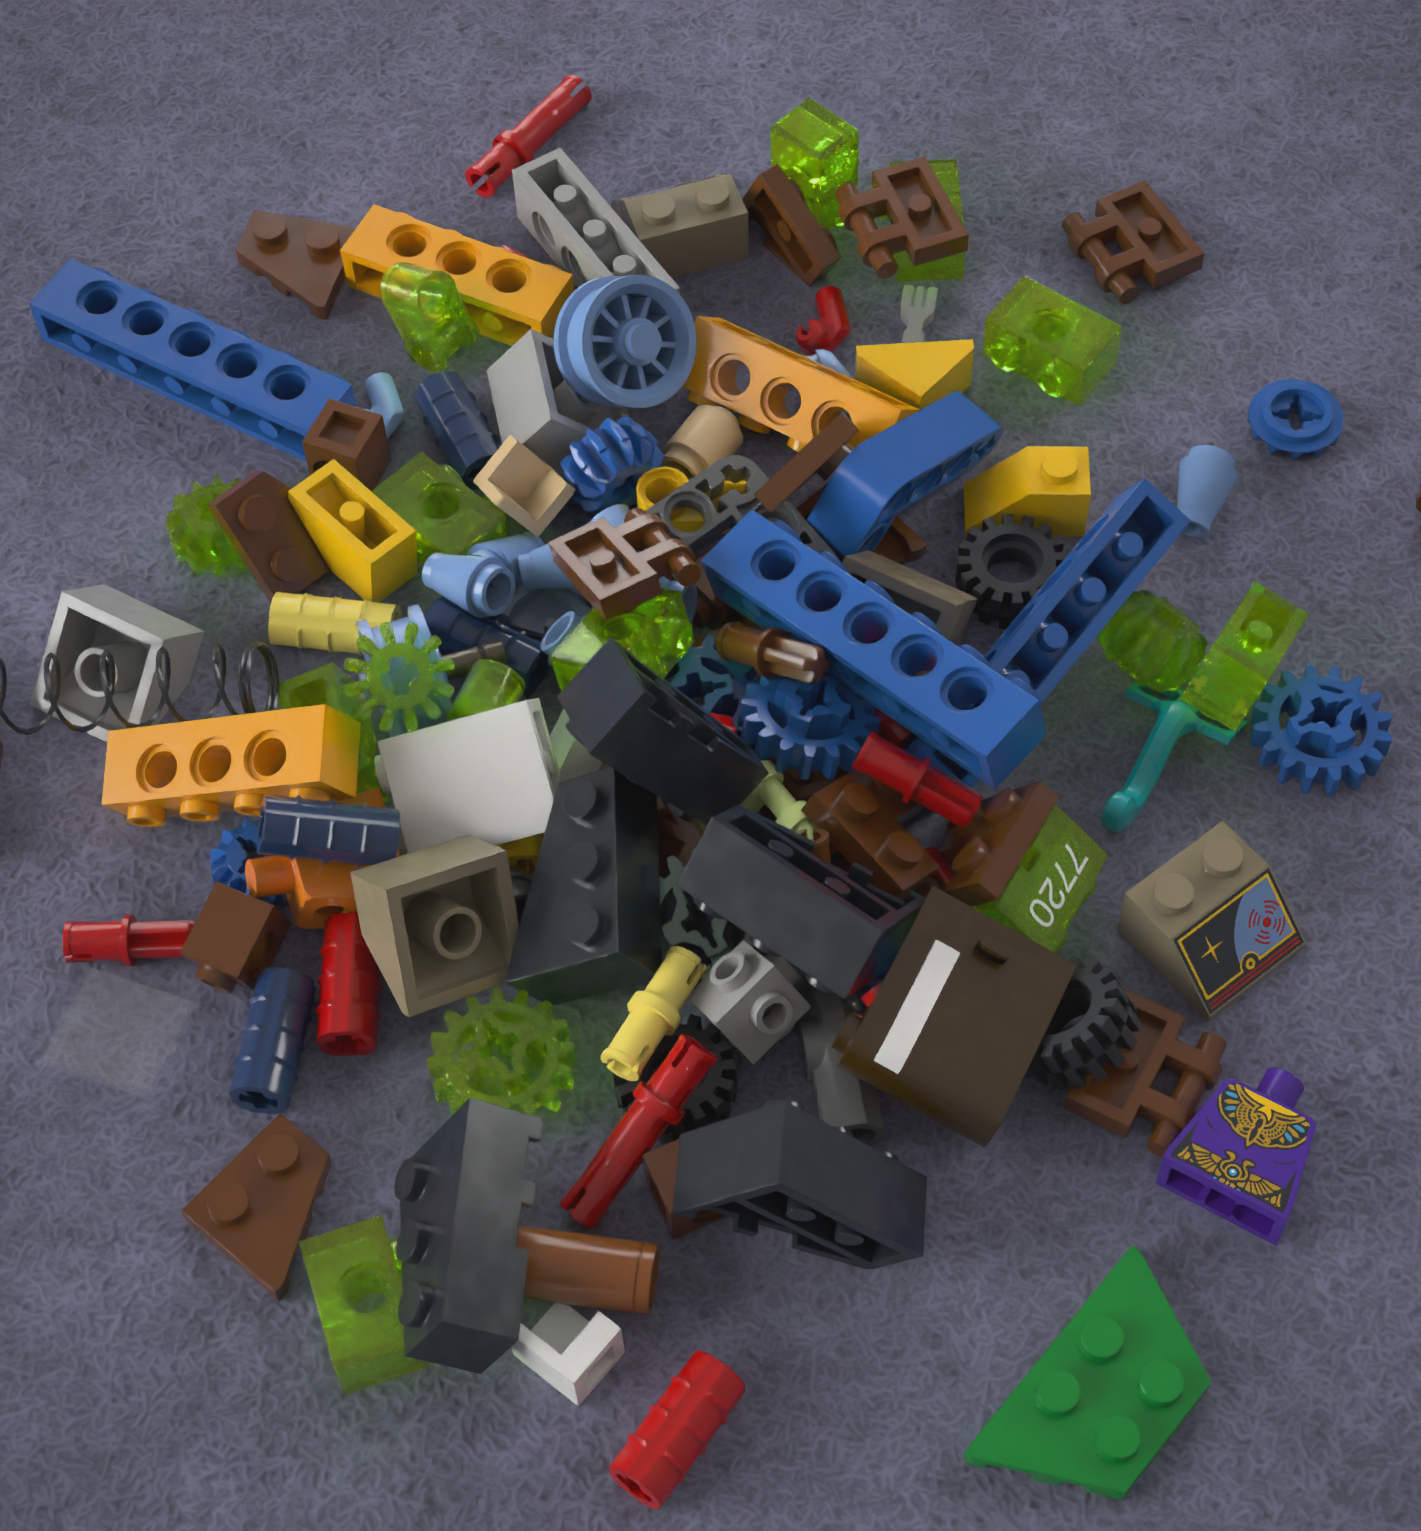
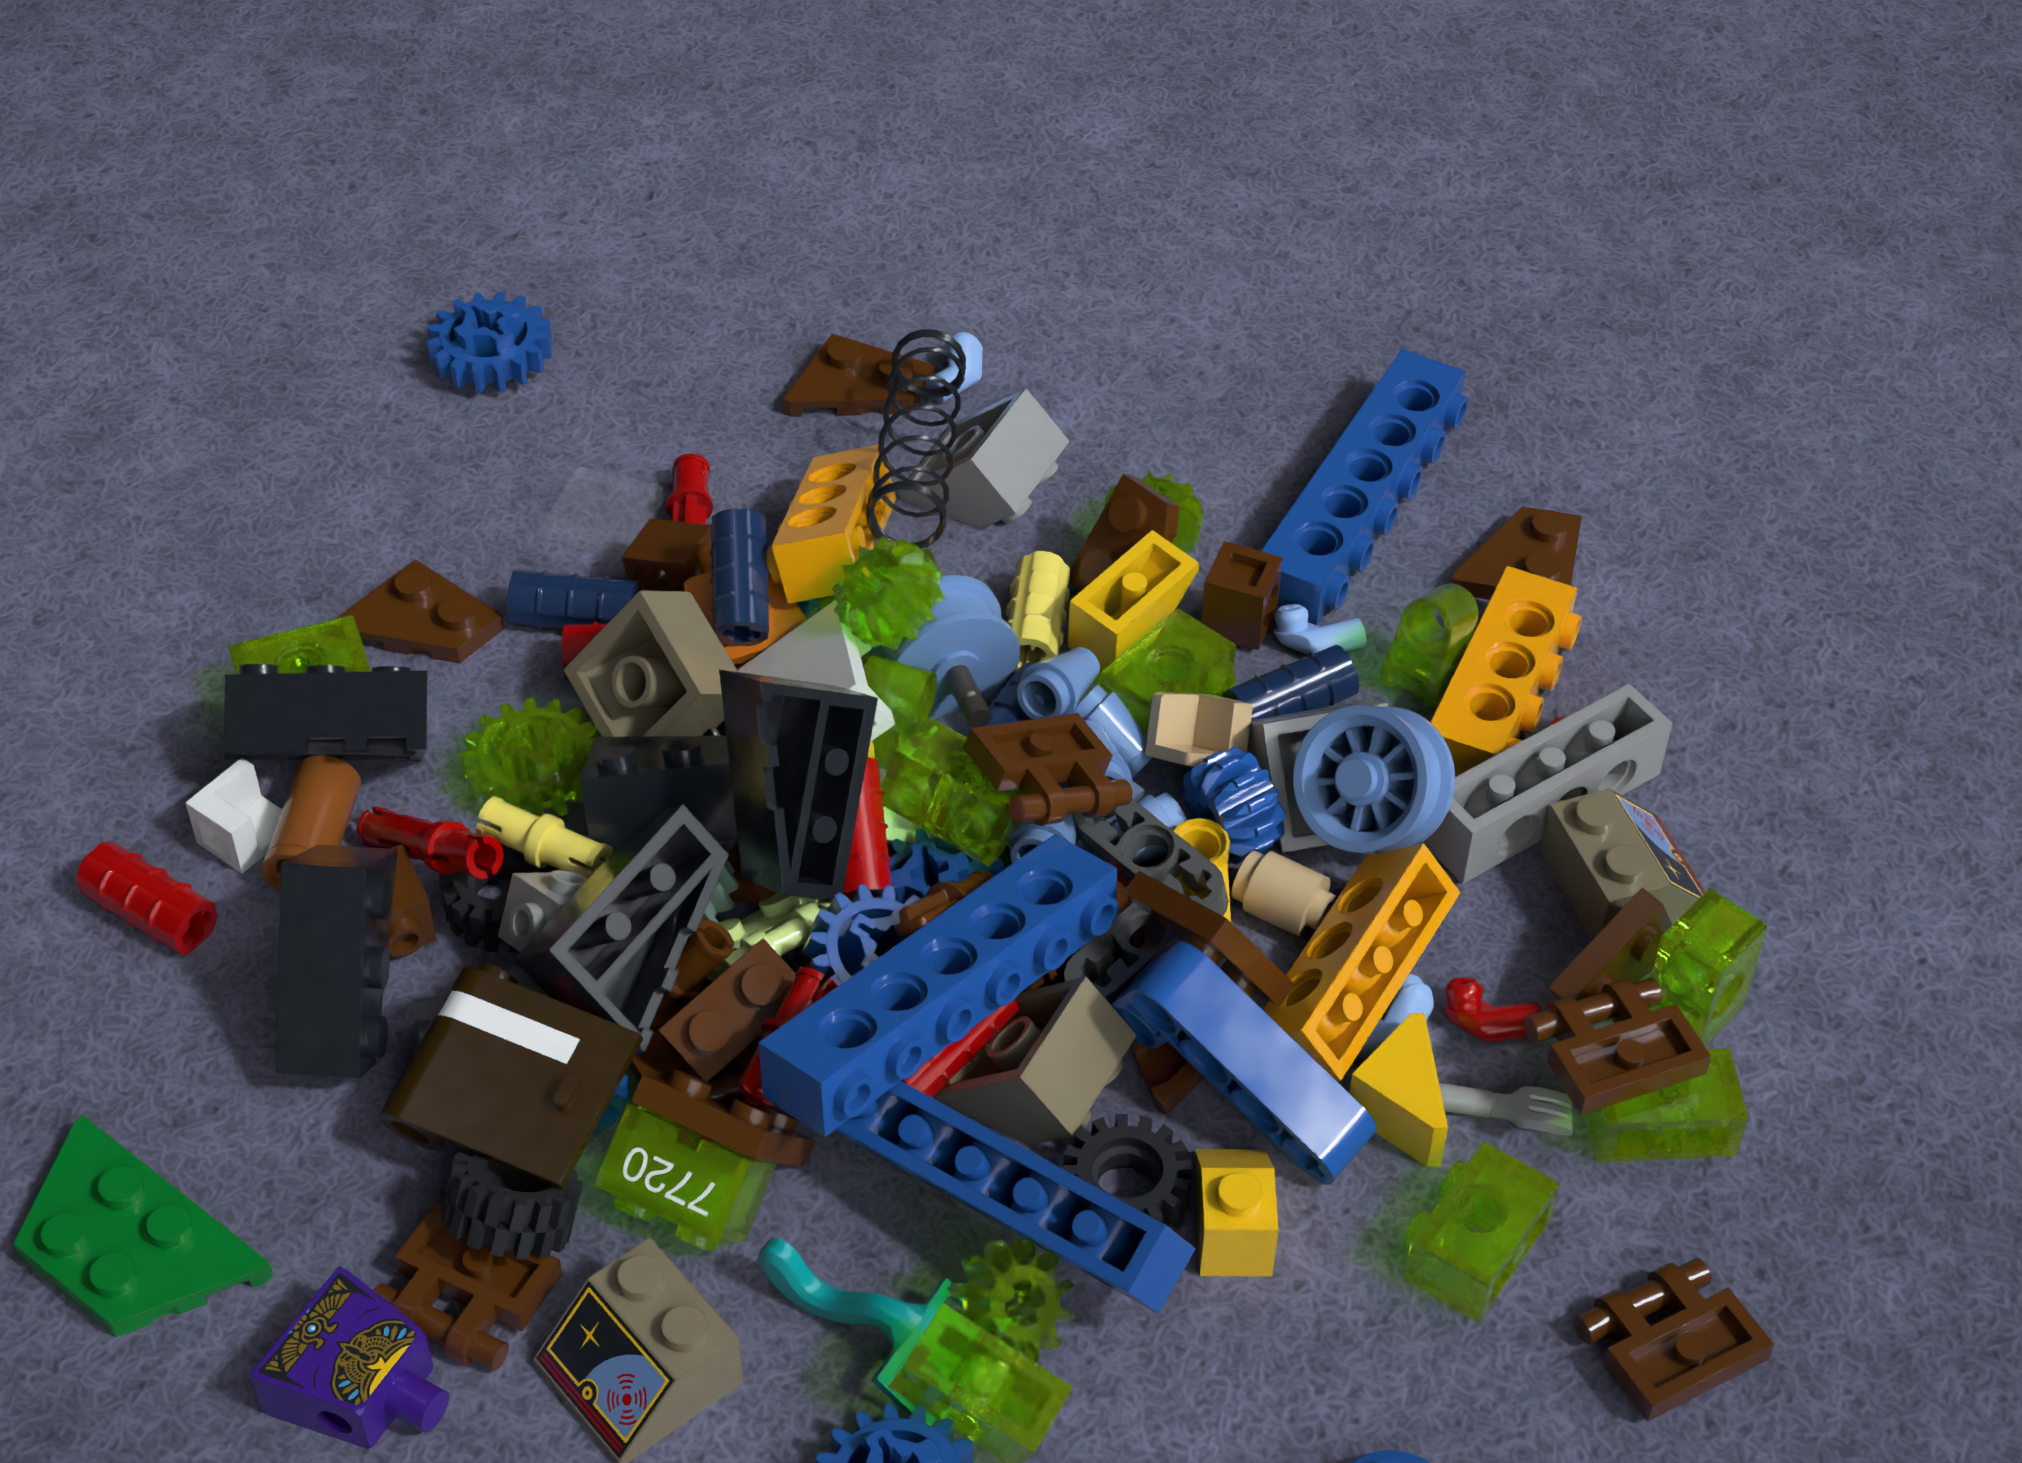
camera: 85 degrees right, 10 degrees down
(518, 145) = (1715, 722): red pin -> none
(1203, 486) = (1261, 1387): medium blue cone -> none

